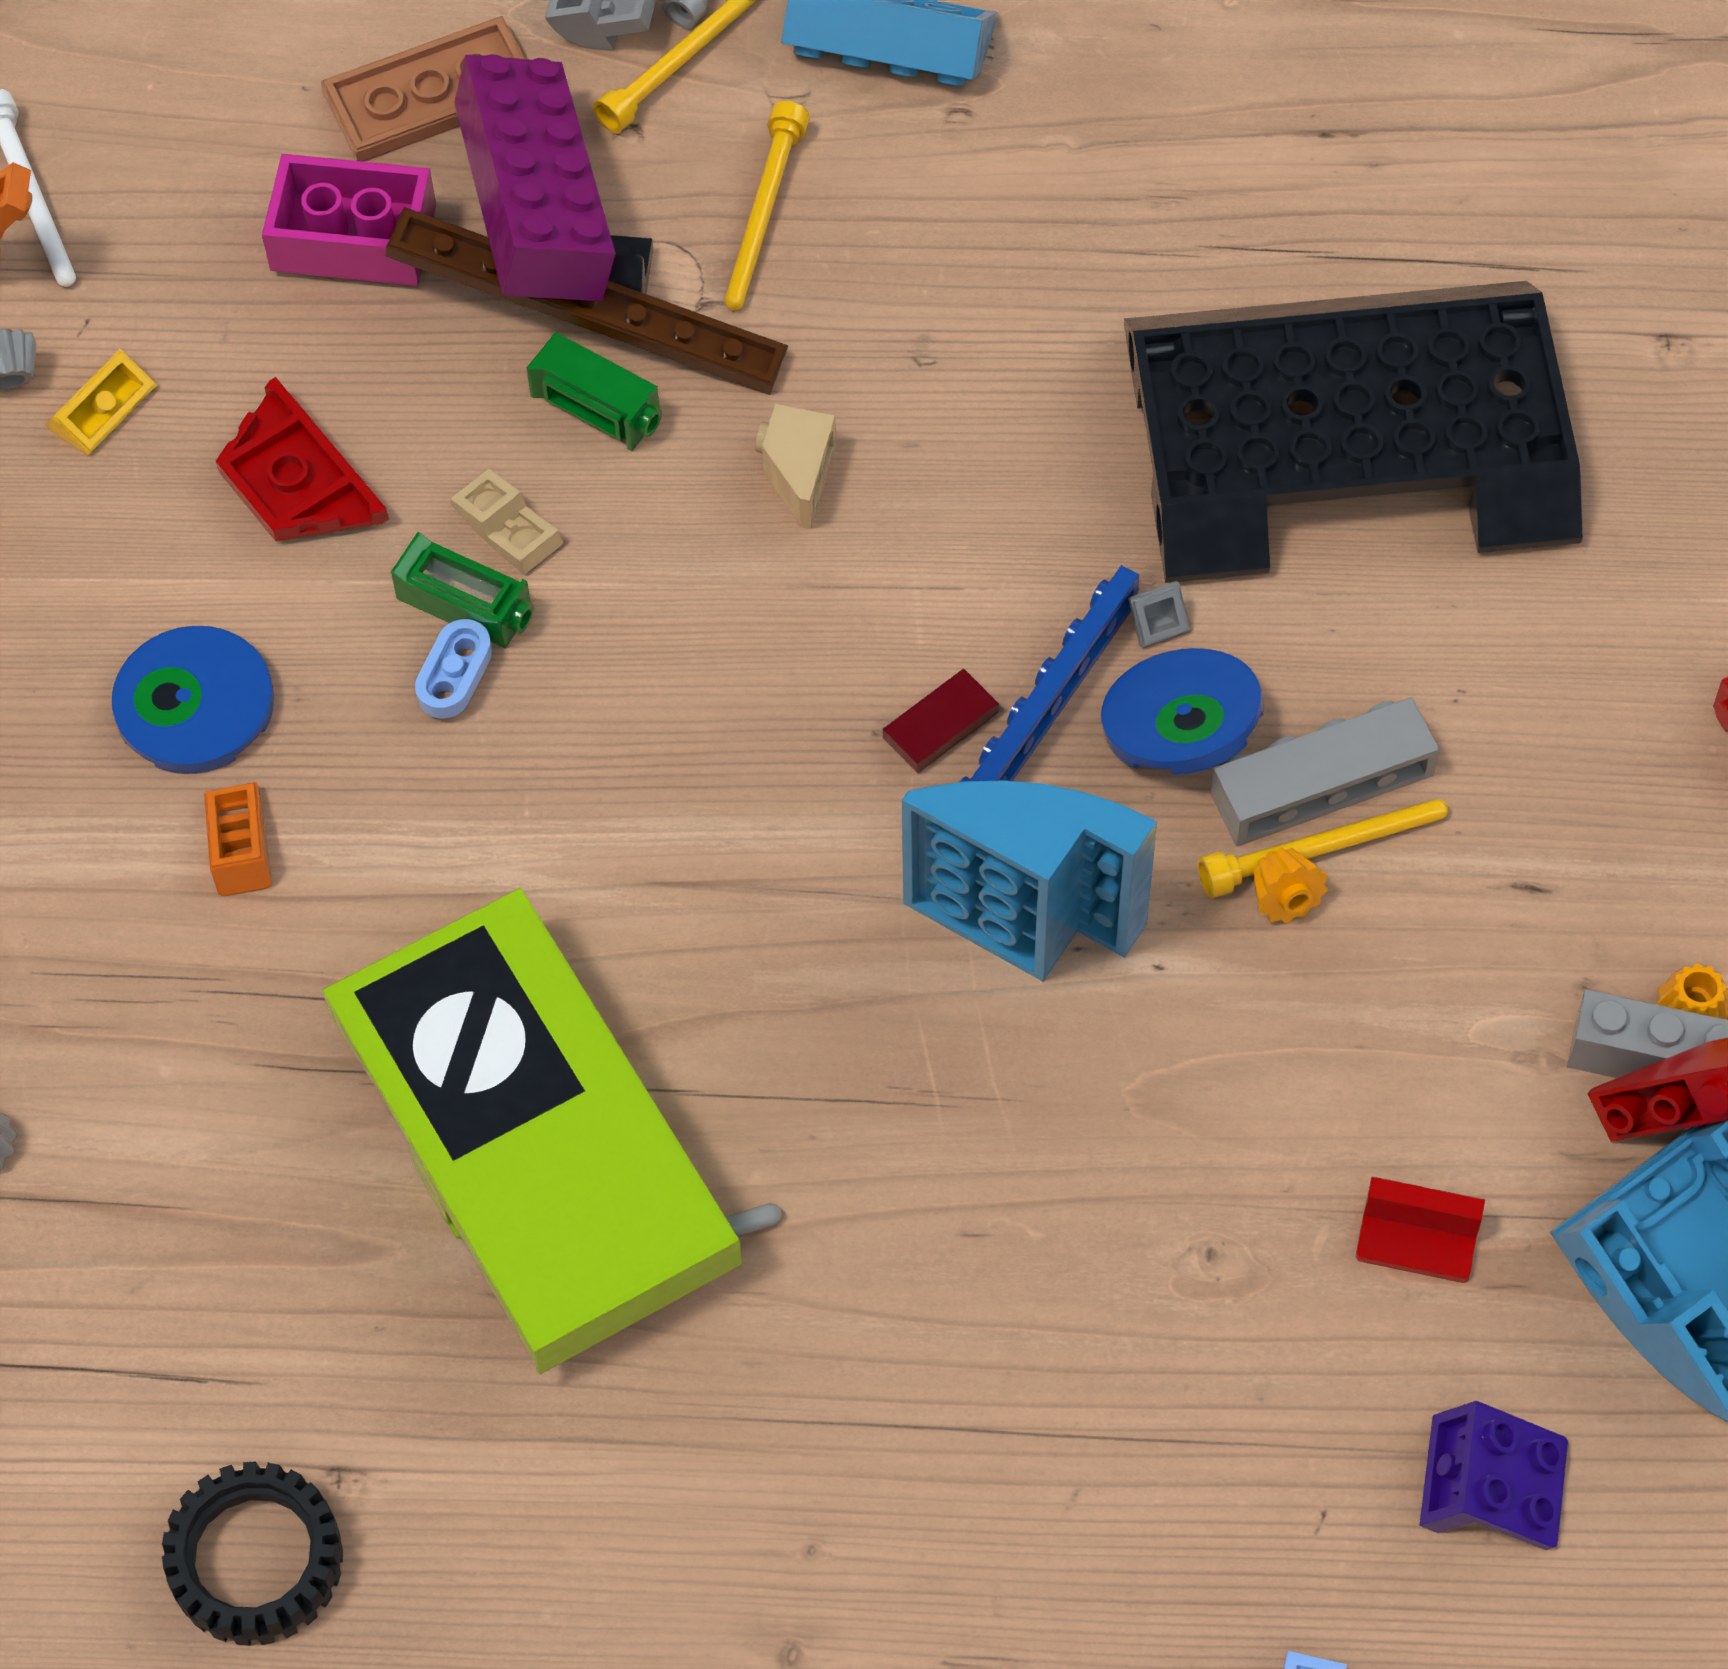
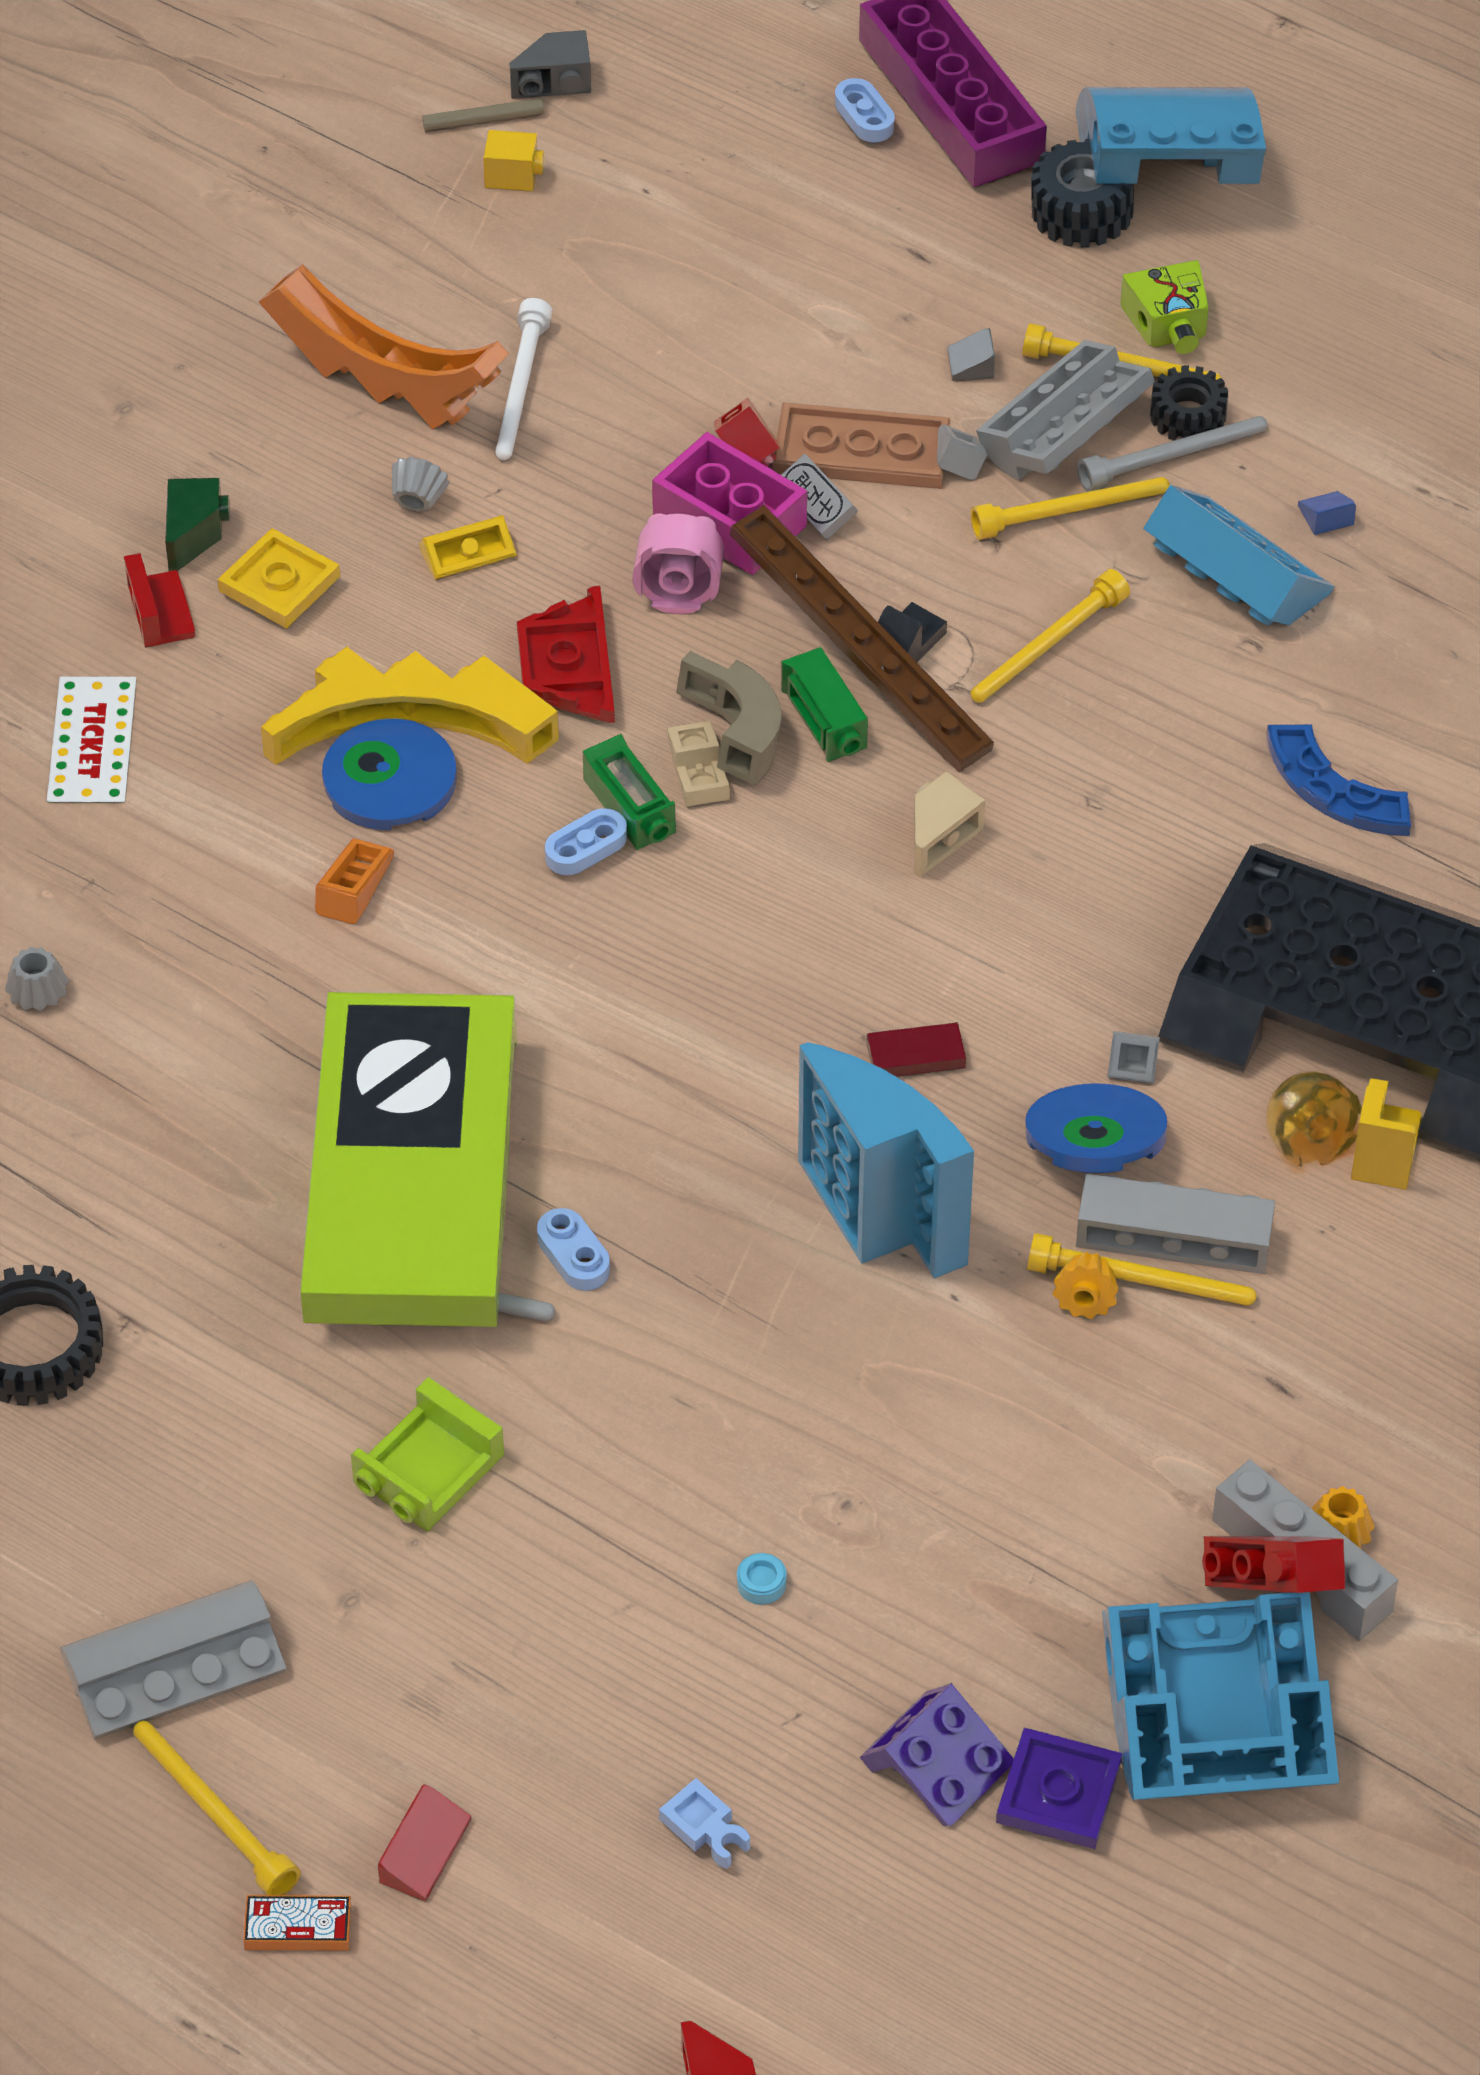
camera: 30 degrees right, 10 degrees down
(232, 572) = (475, 702): none -> yellow arch
(311, 131) = (747, 432): none -> red slope
(344, 311) = (678, 562): none -> bright pink brick
(448, 168) = (826, 504): none -> light grey tile
(520, 433) = (745, 703): none -> dark tan arch
(533, 178) = (876, 531): magenta brick -> none
(538, 42) = (959, 452): none -> light grey slope
(746, 1129) = (570, 1245): none -> light blue plate
(767, 1449) = (429, 1457): none -> lime panel
(1058, 679) = (1025, 1062): blue plate -> none
(1141, 232) = (1313, 779): none -> blue tile
(1188, 1386) = (761, 1578): none -> medium azure tile
(1377, 587) = (1312, 1118): none -> clear yellow cylinder
(1419, 1230) = (1010, 1564): red panel -> none
(1453, 575) = (1384, 1139): none -> yellow panel
(1635, 1445) = (1059, 1788): none -> dark purple plate

